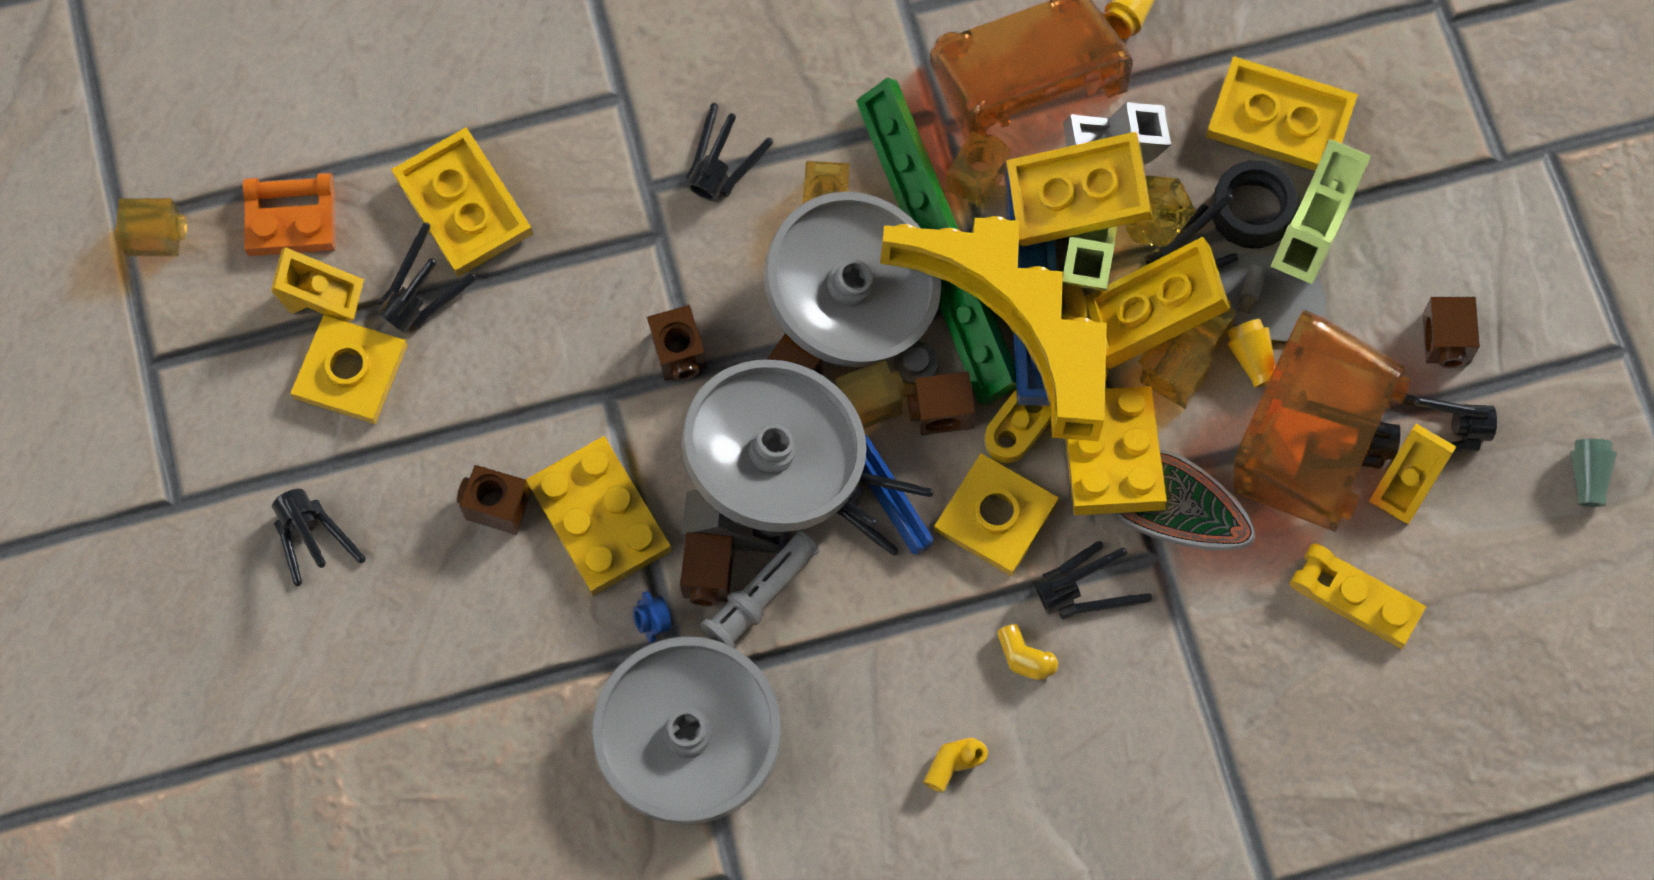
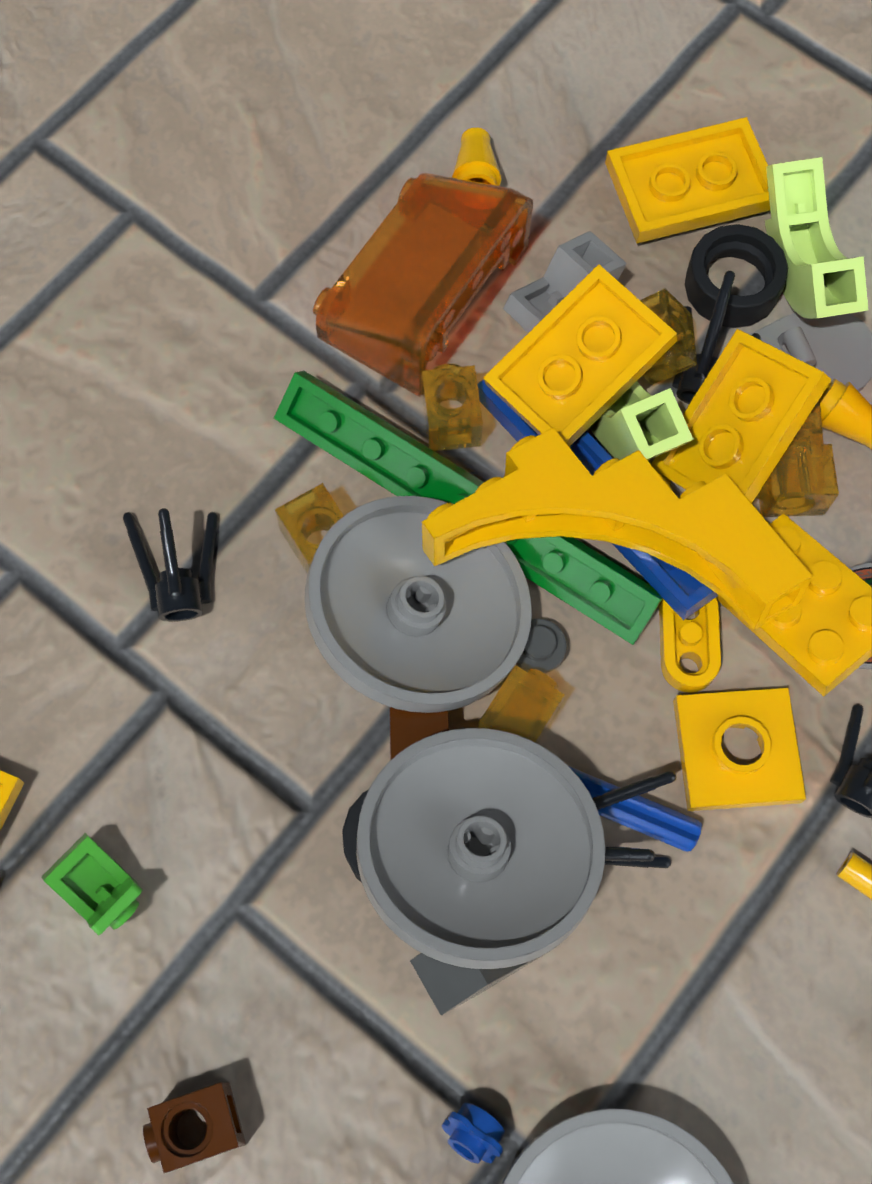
camera: 40 degrees left, 0 degrees up
(532, 321) = (94, 885): none -> bright green bracket
(598, 515) = (324, 1055): yellow plate -> none
(672, 327) = (258, 780): reddish brown brick -> none
(707, 568) = (495, 1032): reddish brown brick -> none
(746, 605) = (574, 1045): light grey pin -> none
(942, 403) = (601, 669): reddish brown brick -> none

